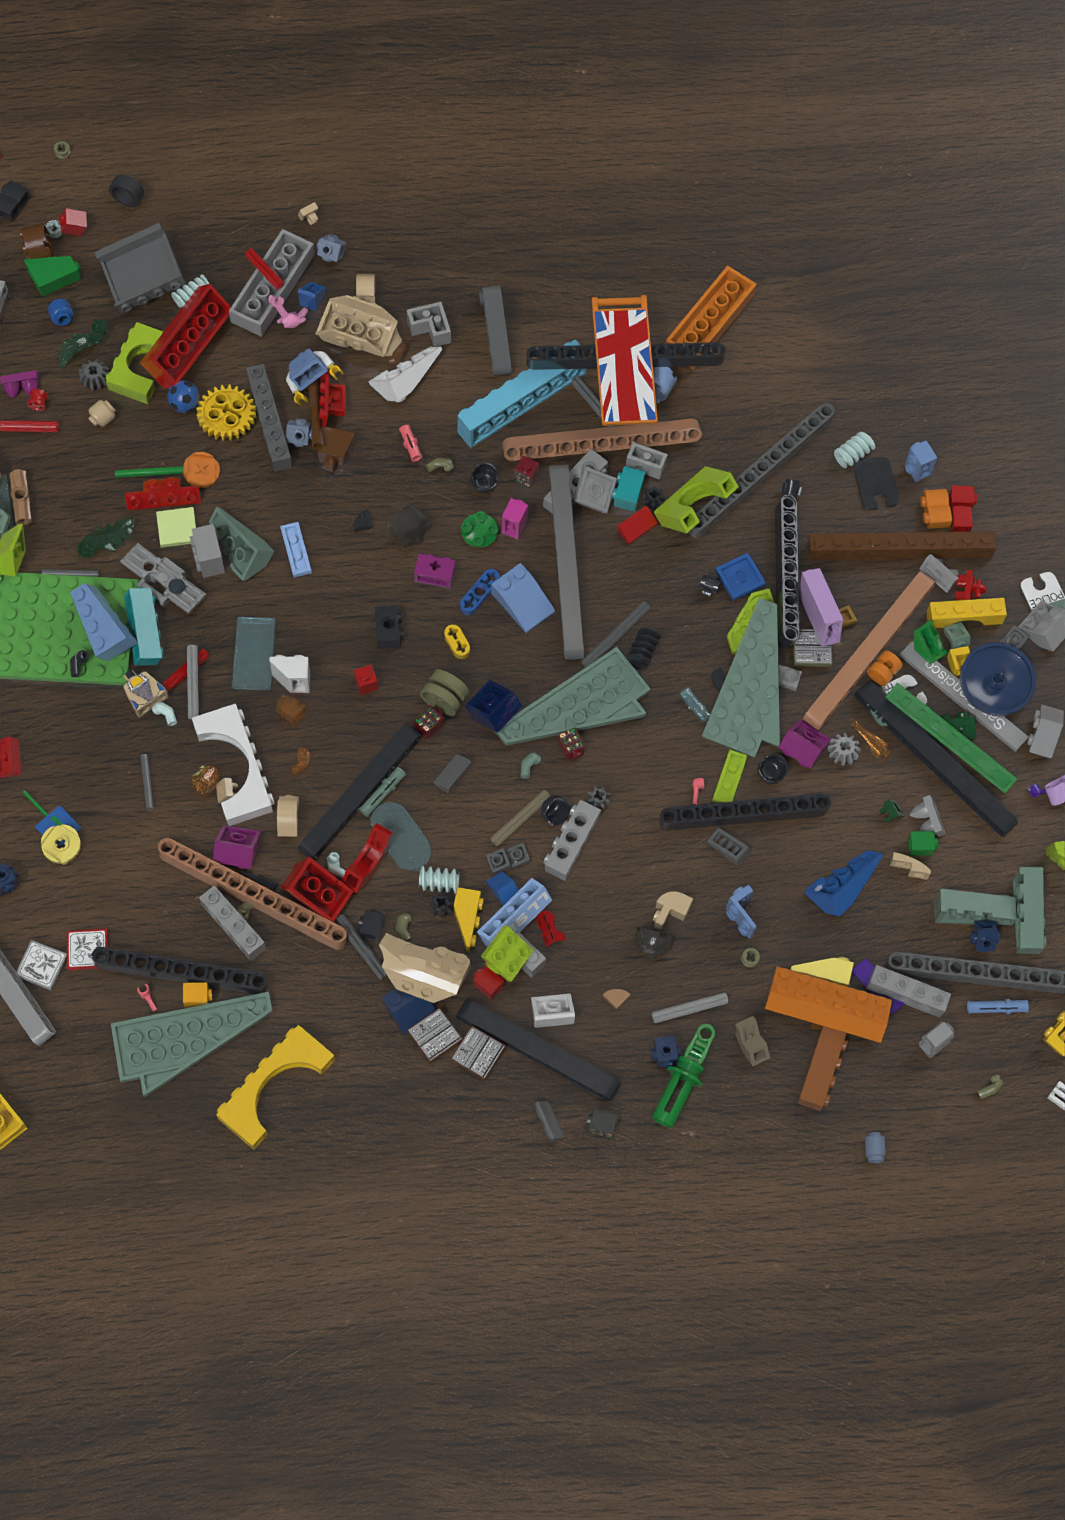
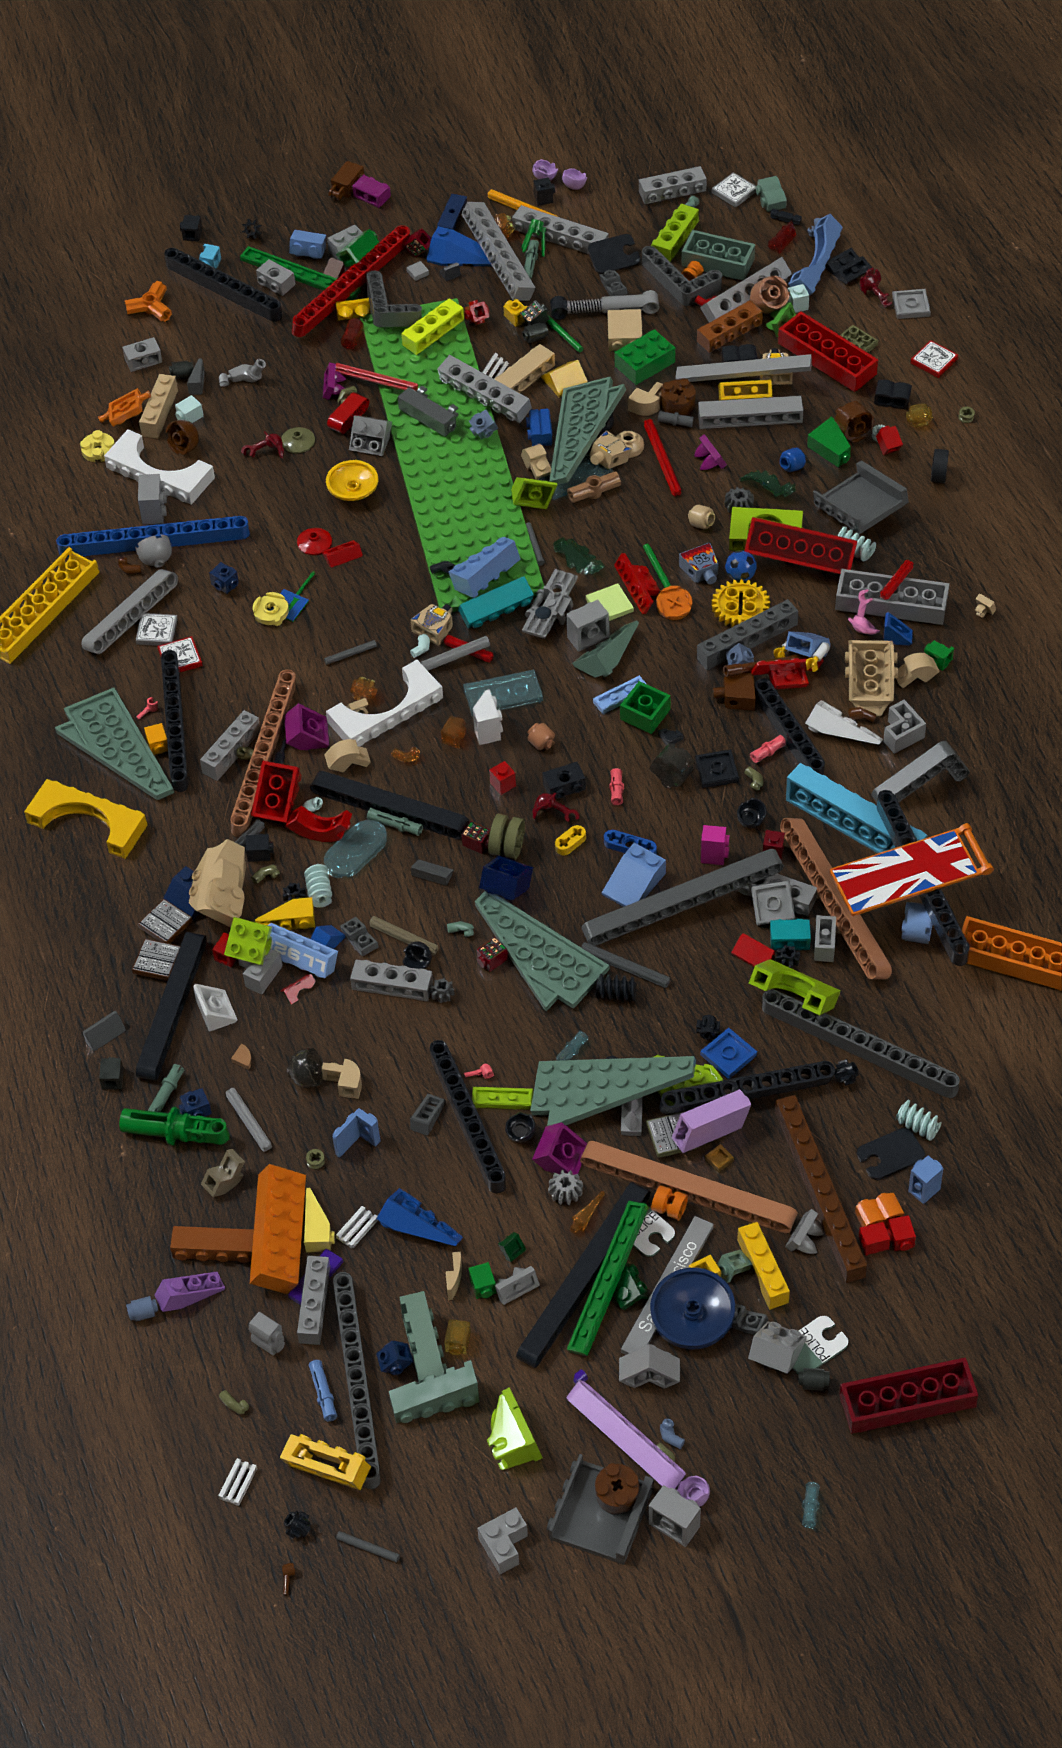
camera: 80 degrees right, 15 degrees down
(37, 400) = (696, 470): red wheel -> none
(49, 187) = (919, 415): none -> clear yellow head
(162, 431) = (700, 563): none -> sand blue torso
(326, 632) = (541, 736): none -> nougat head
(327, 530) = (645, 707): none -> green brick
(331, 248) = (952, 631): sand blue brick -> none
(351, 268) = (940, 654): none -> green brick
(402, 412) = (787, 726): none -> black beam
(408, 584) = (616, 786): none -> coral pin
(412, 648) = (547, 801): none -> dark red piece
(416, 491) = (716, 768): none -> black tile
(441, 576) = (637, 801): magenta brick -> none
(479, 530) = (691, 825): green dish -> none
(630, 1072) = (166, 1089): none -> sand green pin
(838, 931) = (361, 1212): none -> white tile
(865, 1102) = (186, 1290): none -> medium lavender slope
(928, 642) = (716, 1236): green slope -> none
(968, 581) = (795, 1263): red hips -> none
(974, 879) = (457, 1337): none -> clear yellow brick

